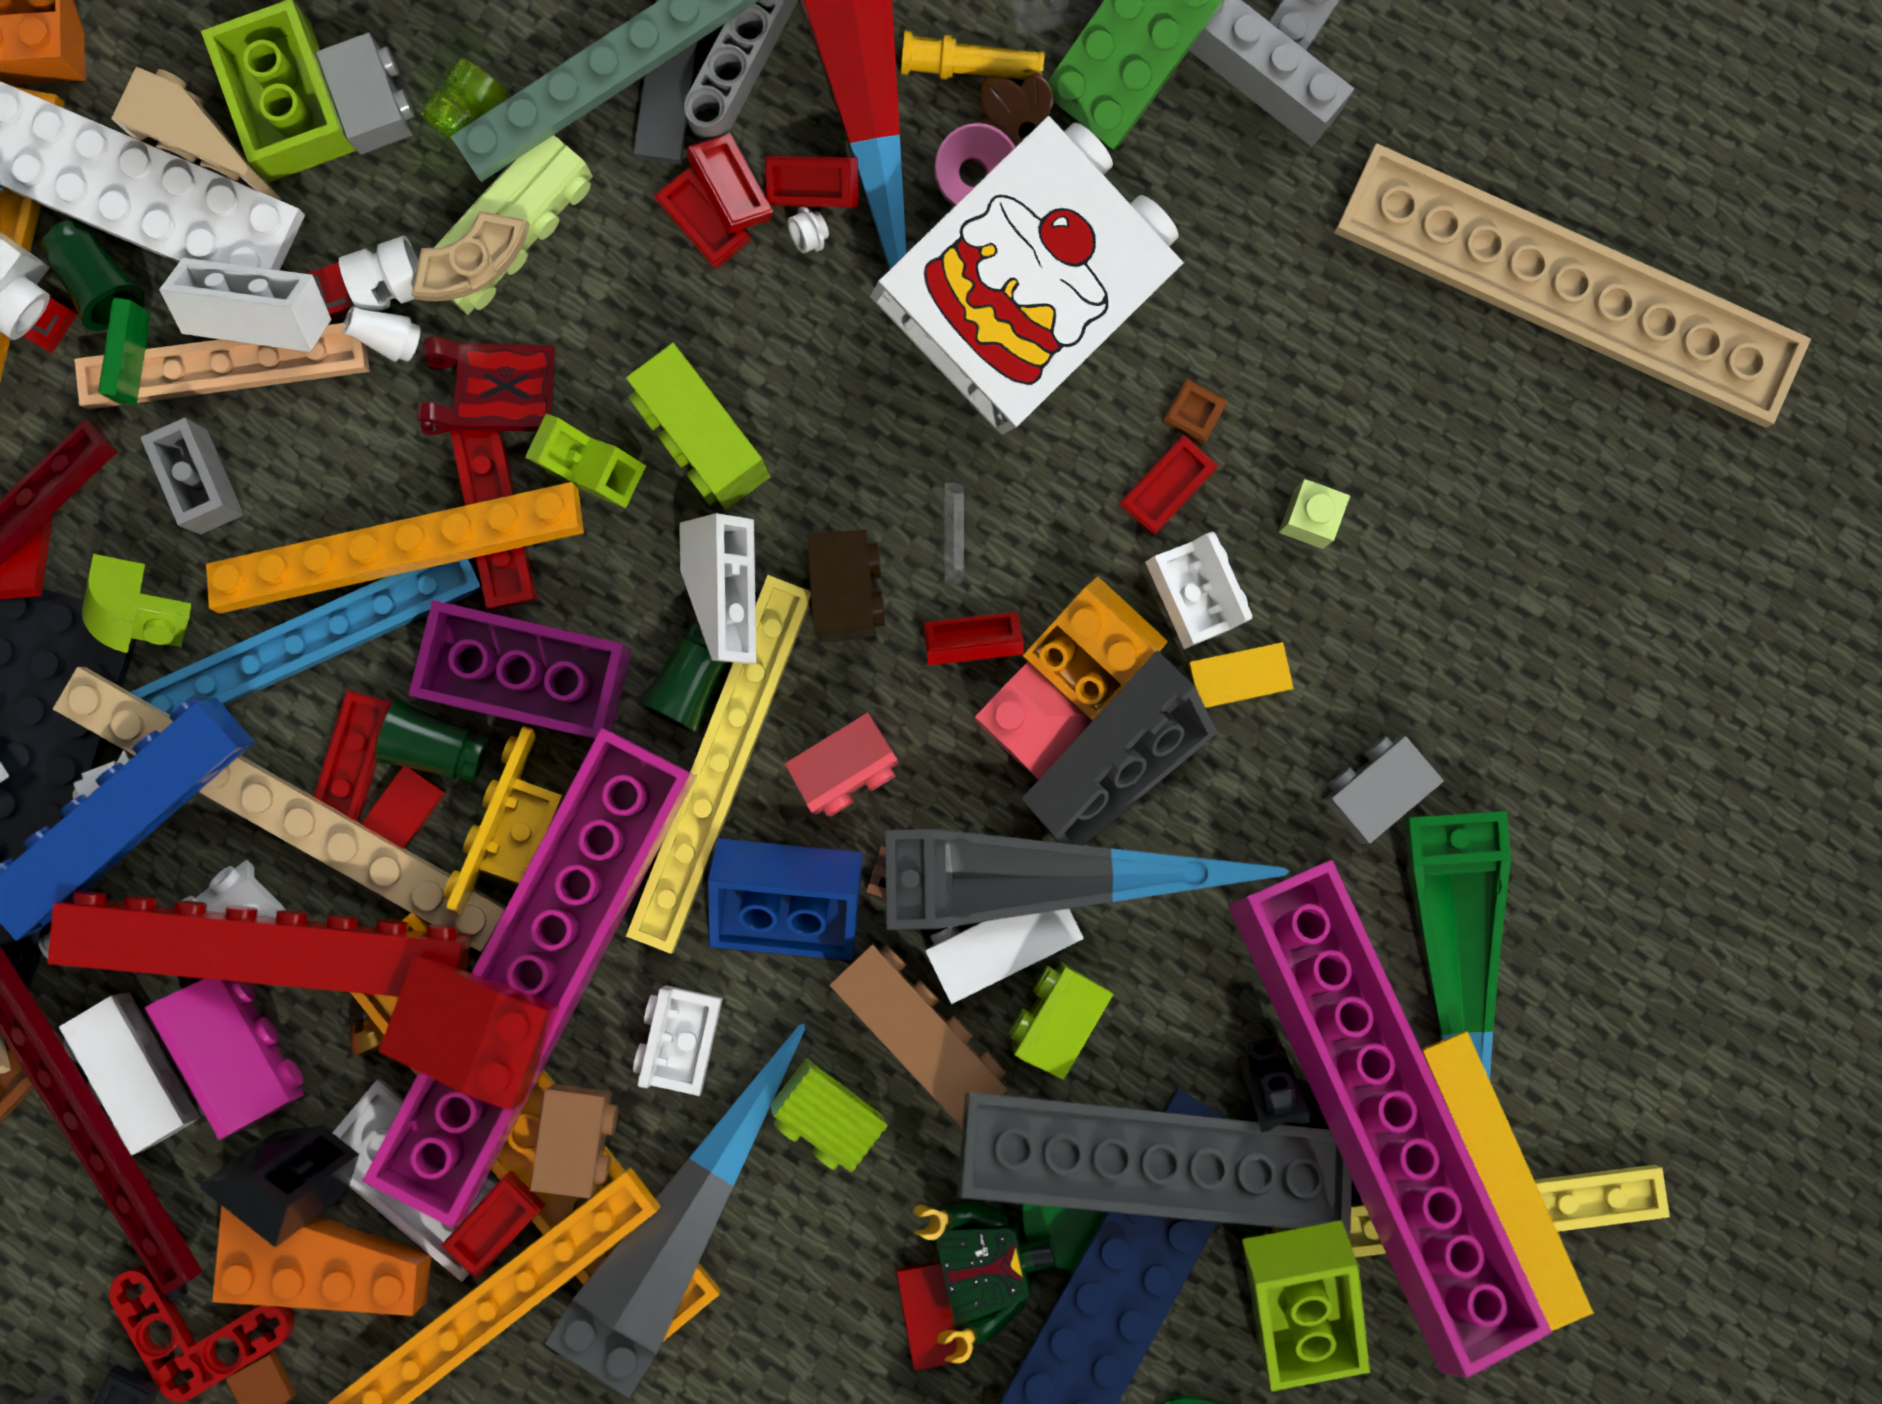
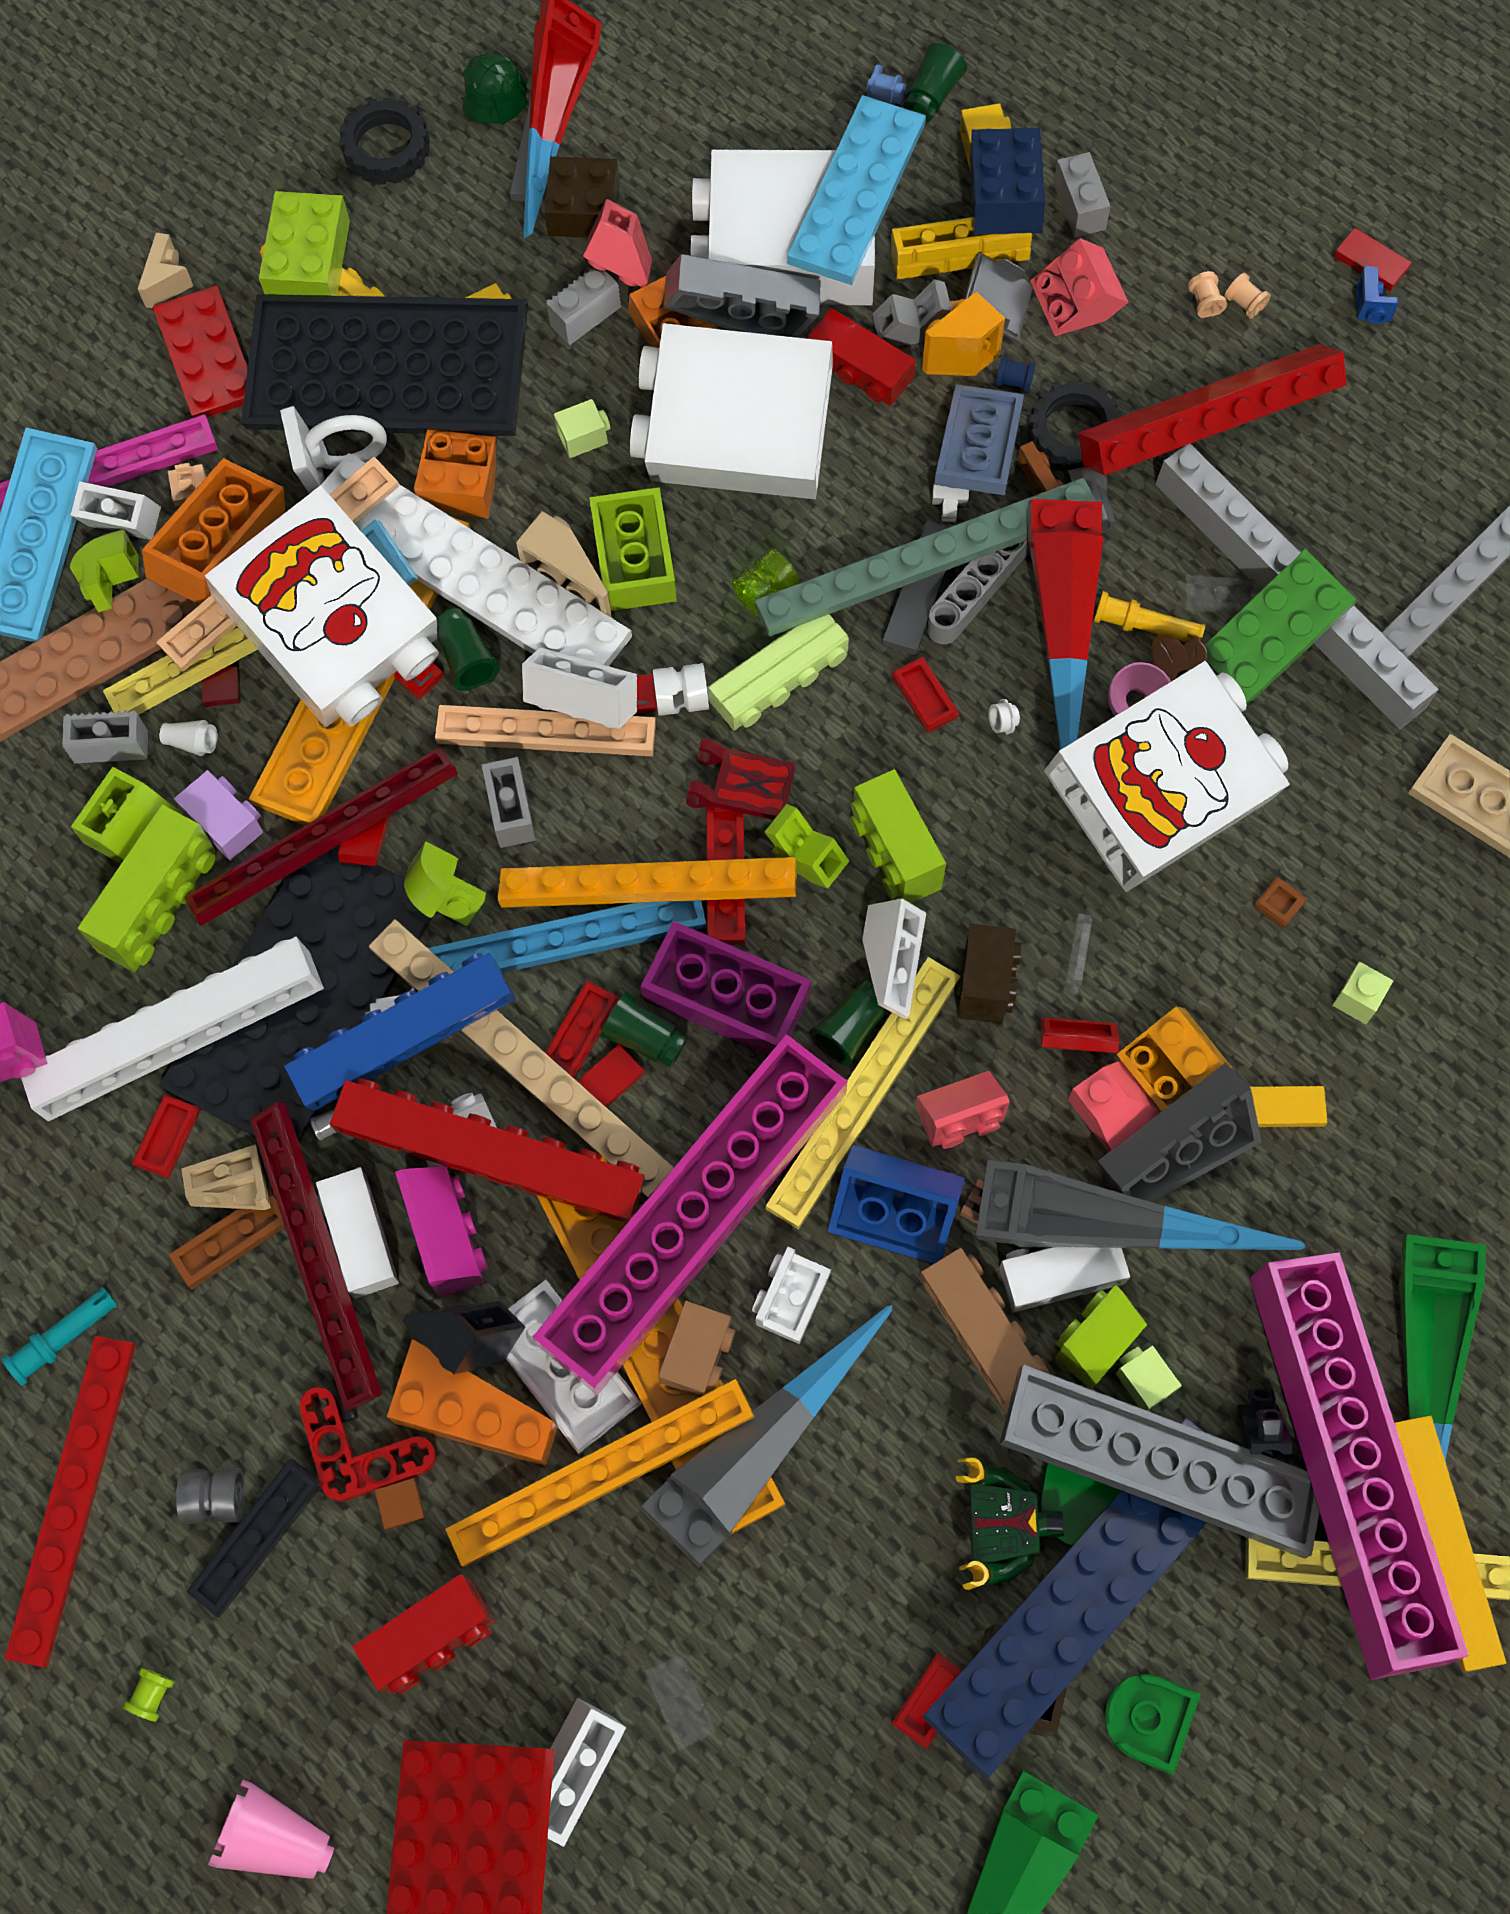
camera: 15 degrees right, 15 degrees down
(124, 352) = (481, 705): green tile -> none
(365, 93) = (694, 562): light grey brick -> none
(365, 1038) = (543, 1244): pearl gold hinge -> none
(384, 332) = (673, 729): white cone -> none
(468, 1032) = (642, 1235): red slope -> none
(471, 261) = (750, 689): tan tile -> none
(493, 1224) = (616, 1408): red tile -> none
(511, 828) = (692, 1106): yellow bracket -> none
(729, 183) = (951, 673): tile -> none
(812, 181) = (1014, 682): red tile -> none
(827, 1117) = (899, 1378): lime brick -> none
(926, 1313) = (949, 1550): red tile -> none
(1124, 1052) = (1147, 1377): none -> yellowish green brick
(1168, 485) = (1250, 953): red tile -> none
(1199, 590) = (1264, 1033): white bracket -> none
(1307, 1305) = (1267, 1604): lime brick -> none
(1382, 788) = (1387, 1213): light grey brick -> none

